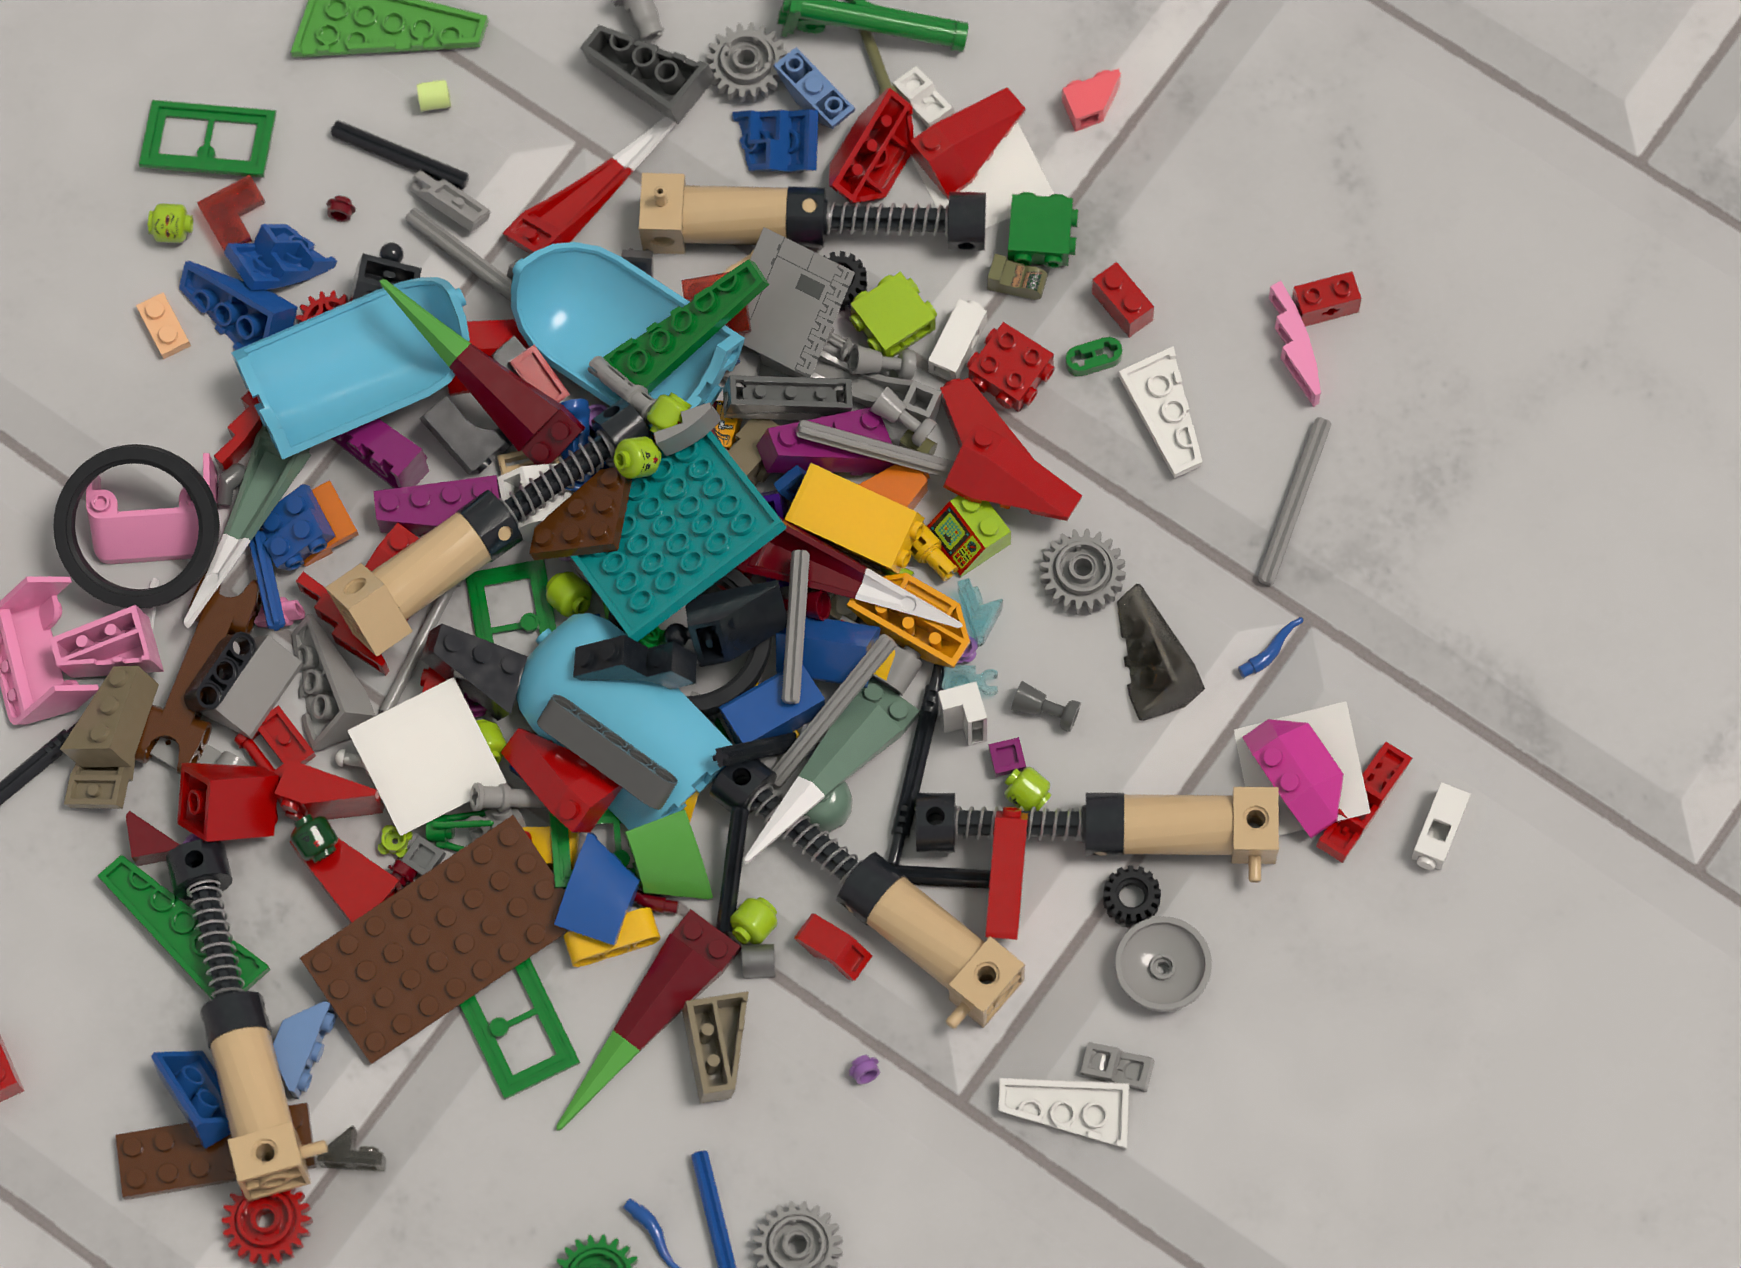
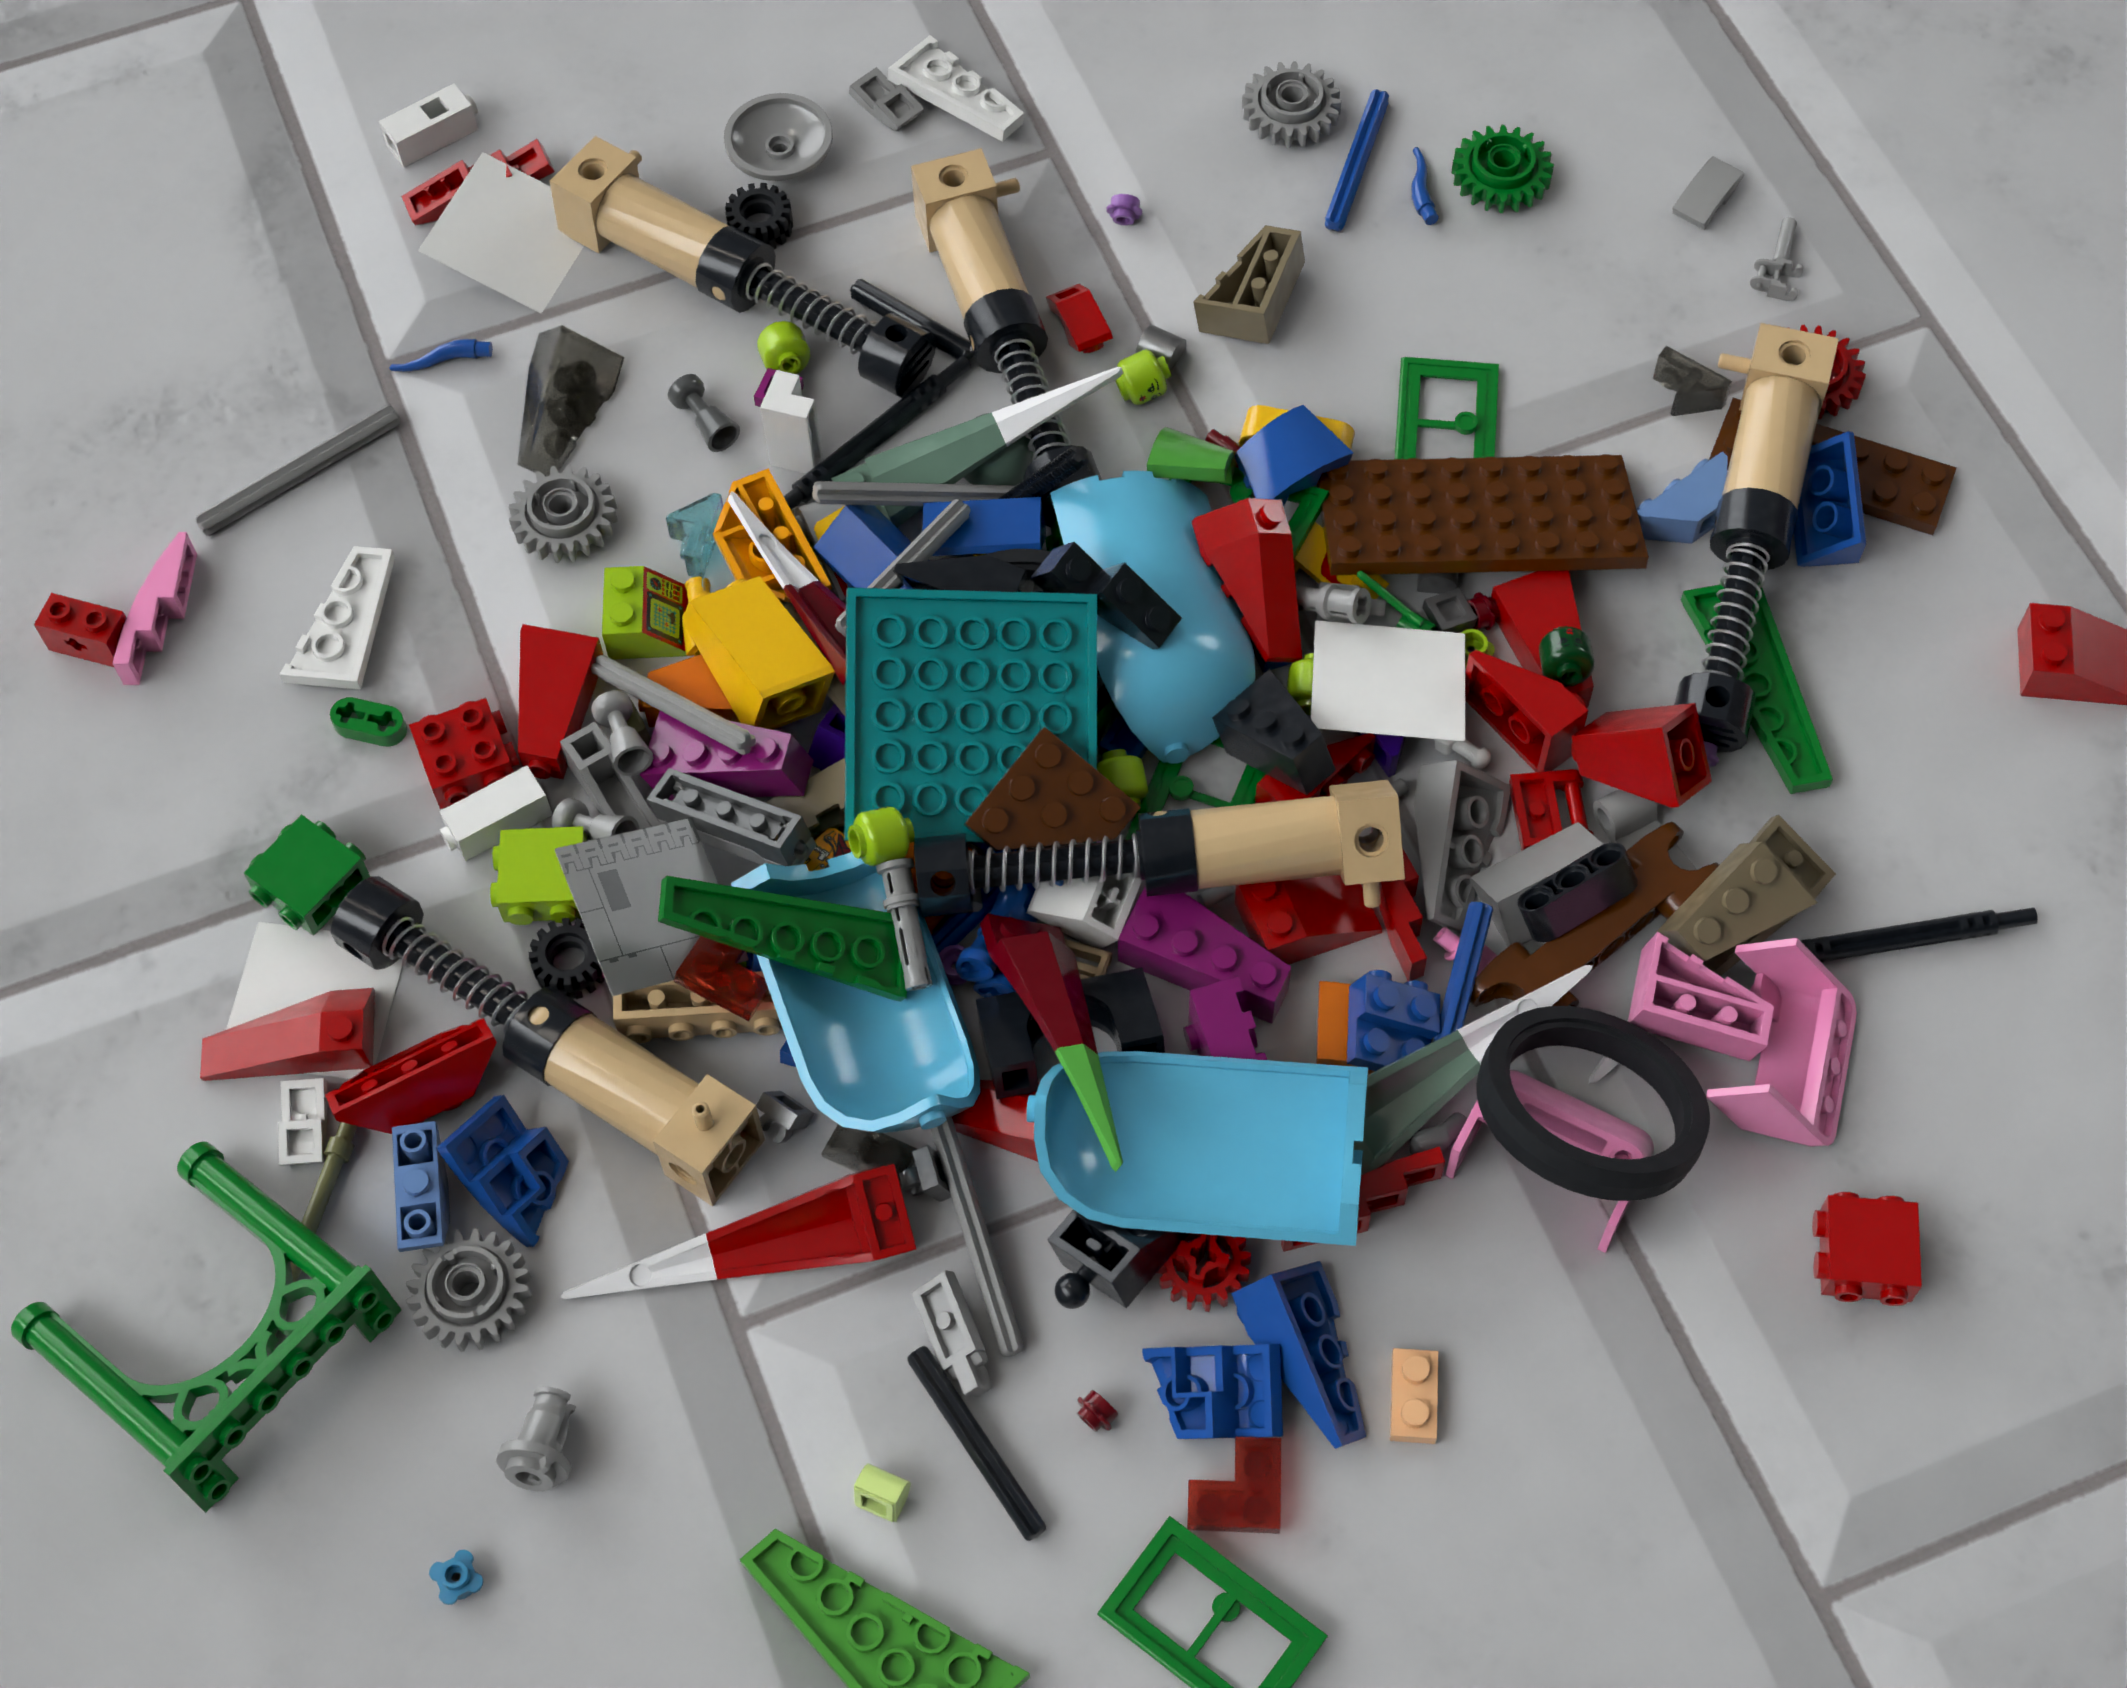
camera: 150 degrees left, 10 degrees down
(146, 842) = (1750, 781): dark red slope -> none
(170, 223) = (1331, 1519): lime head -> none
(536, 371) = (995, 1014): tile -> none
(607, 752) = (1194, 544): dark grey beam -> none
(637, 457) = (950, 808): lime head -> none
(653, 74) = (592, 1326): dark grey wedge -> none
(681, 972) = (1238, 377): dark red plate -> none
(695, 425) = (859, 798): light grey slope -> none
(732, 867) = (1131, 419): black axle -> none
(790, 482) = (803, 733): blue plate -> none
(966, 674) = (783, 476): clear light blue plate -> none
(1002, 473) = (567, 612): red wedge -> none
(1007, 874) = (869, 257): red slope -> none
(1016, 279) = (379, 846): olive leg -> none
(1090, 99) = (122, 994): coral slope -> none
(1122, 299) = (287, 751): red brick -> none
(1300, 769) = (513, 227): dark pink wedge -> none

